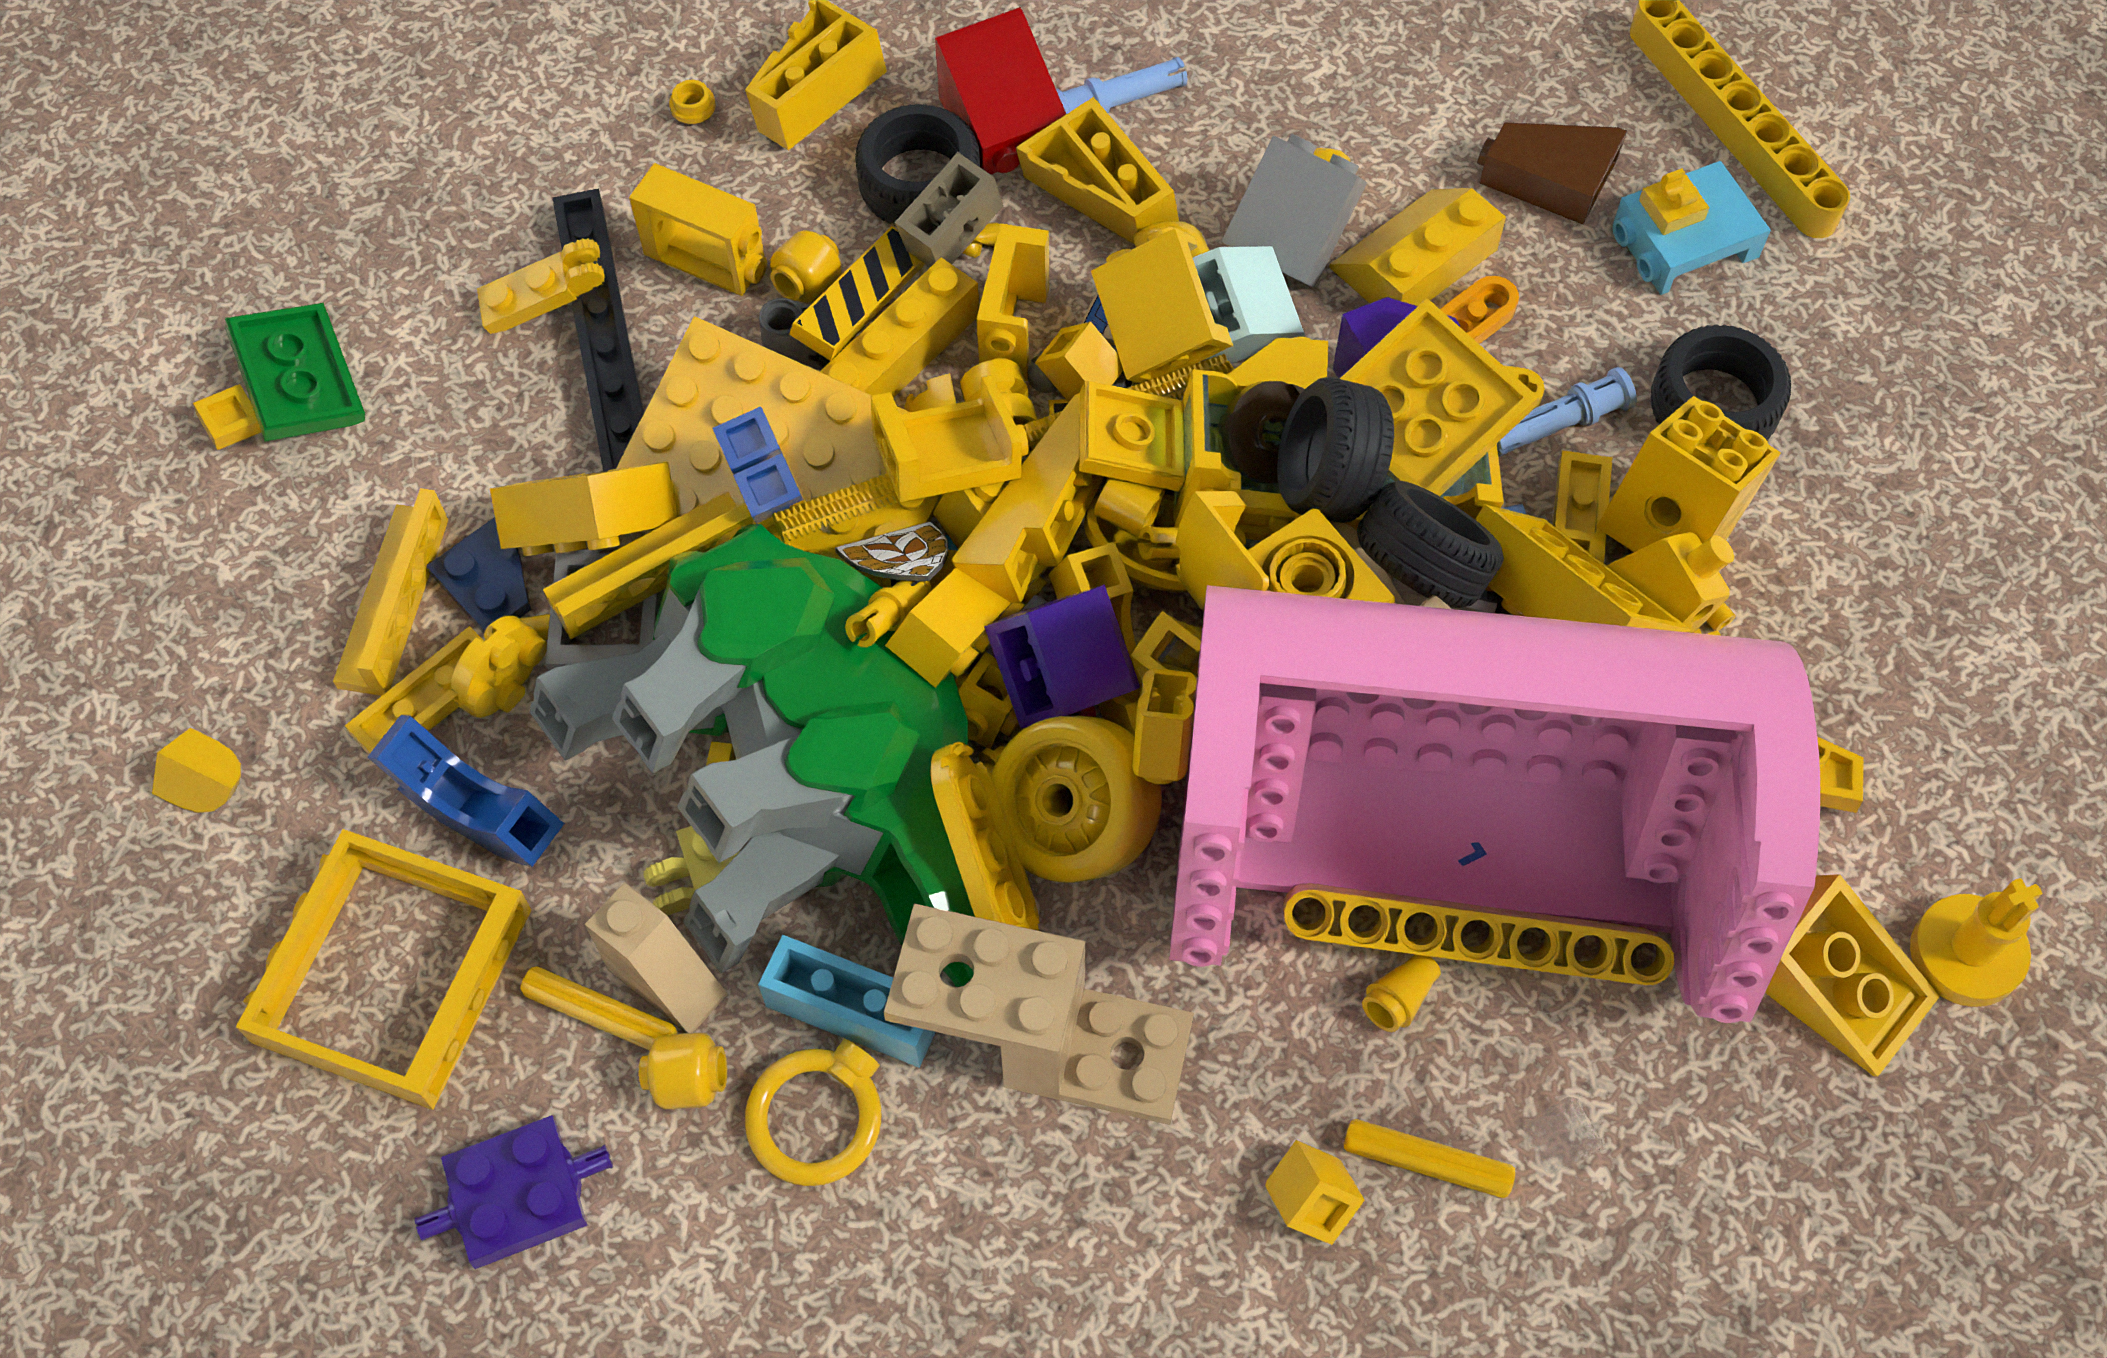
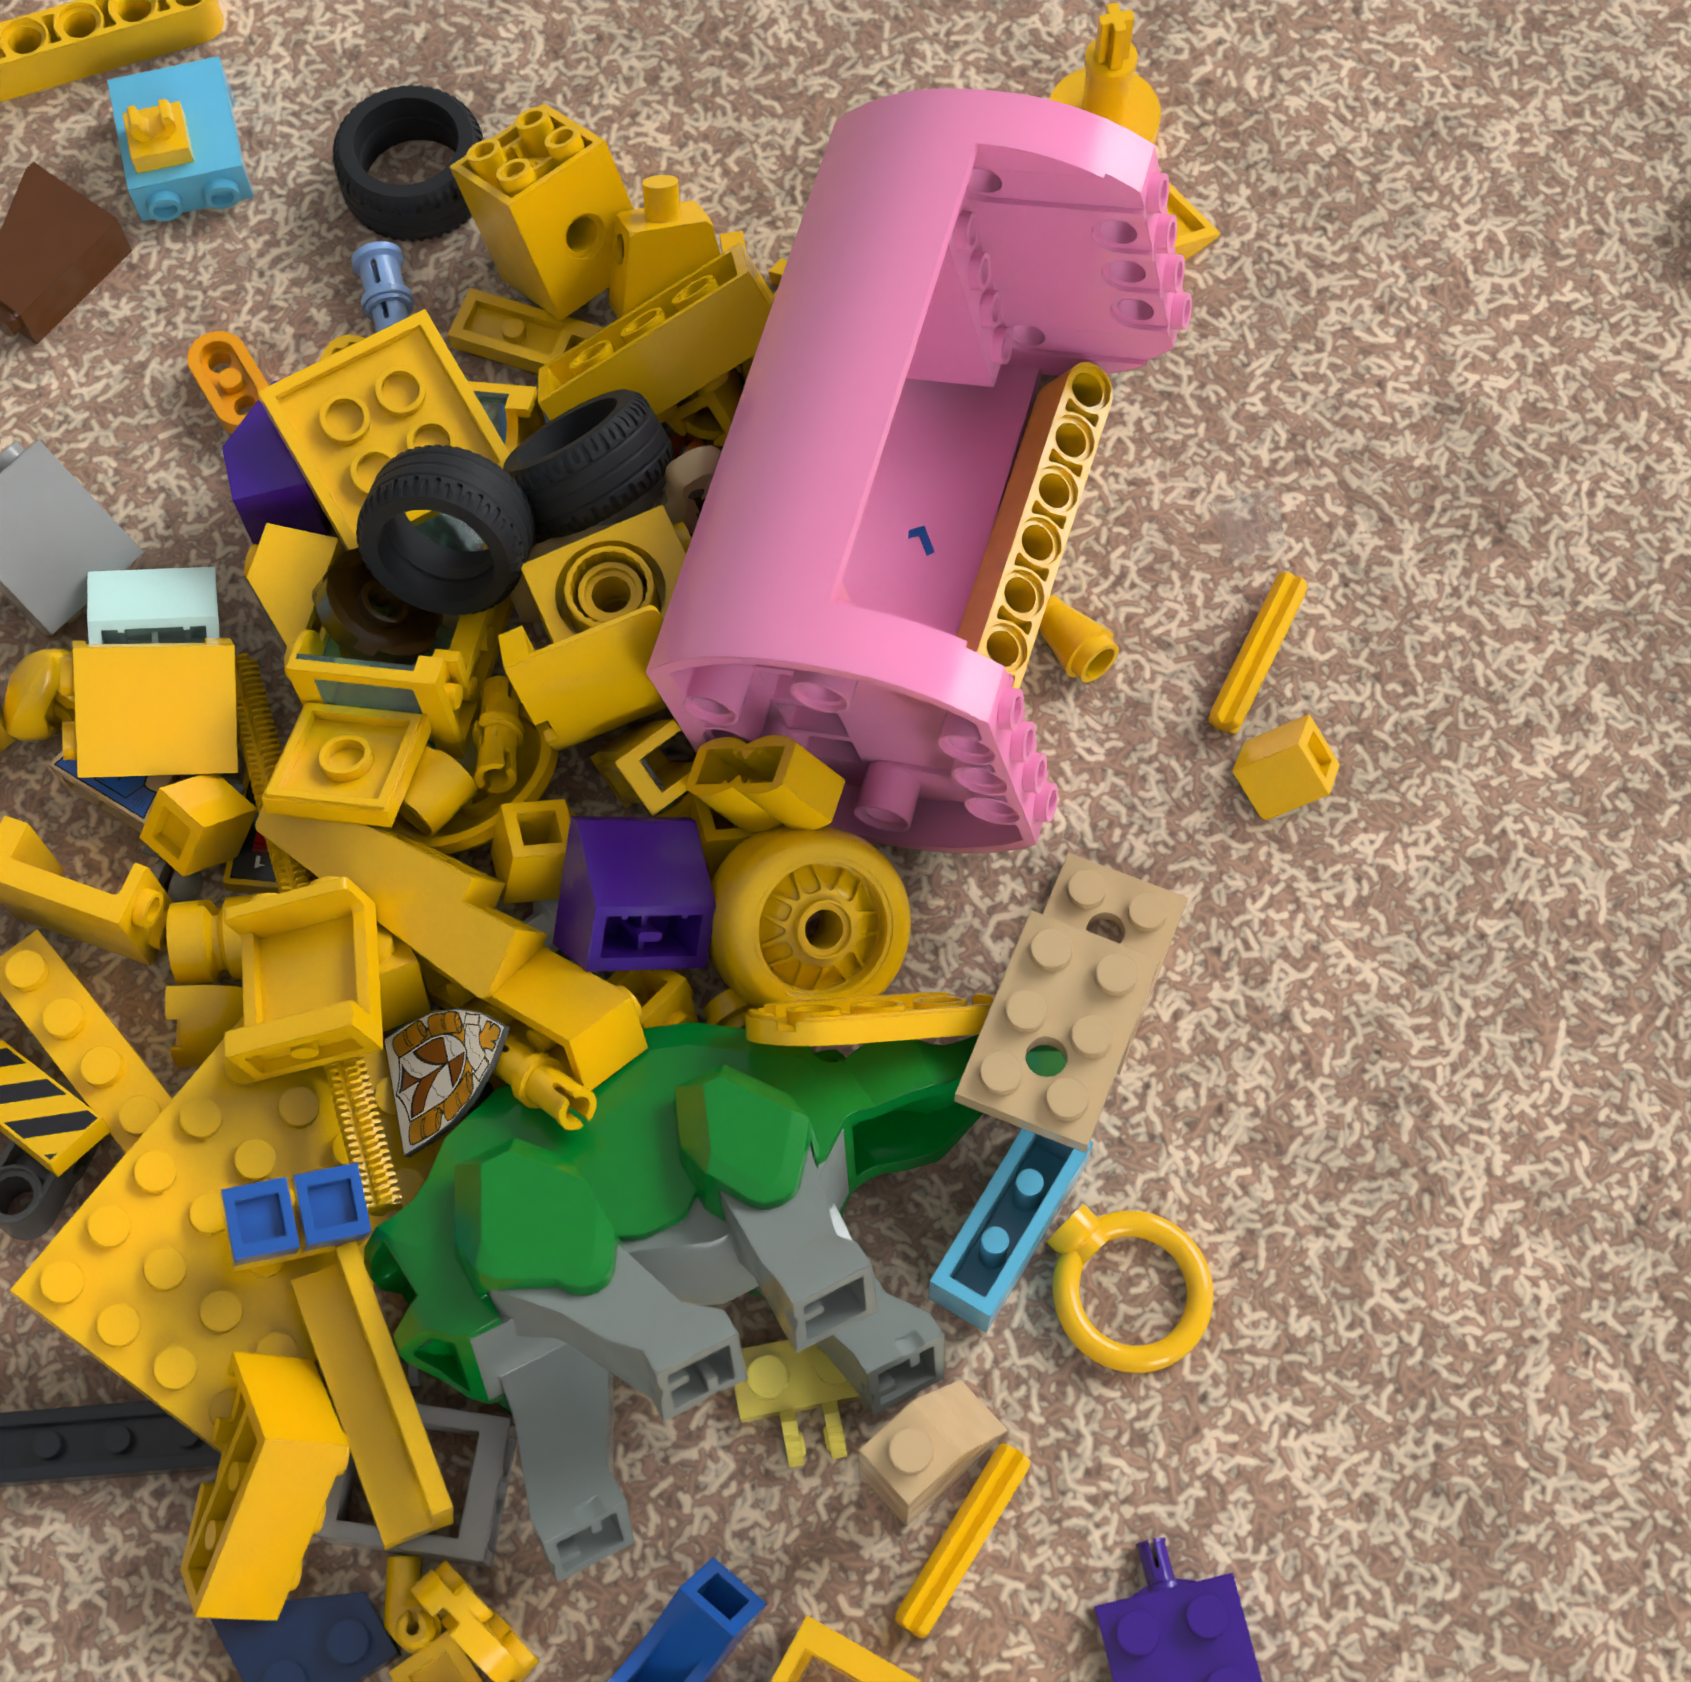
camera: 80 degrees left, 5 degrees up
(683, 1070) = (1064, 1434): yellow head -> none
(1423, 247) = (120, 422): yellow slope -> none

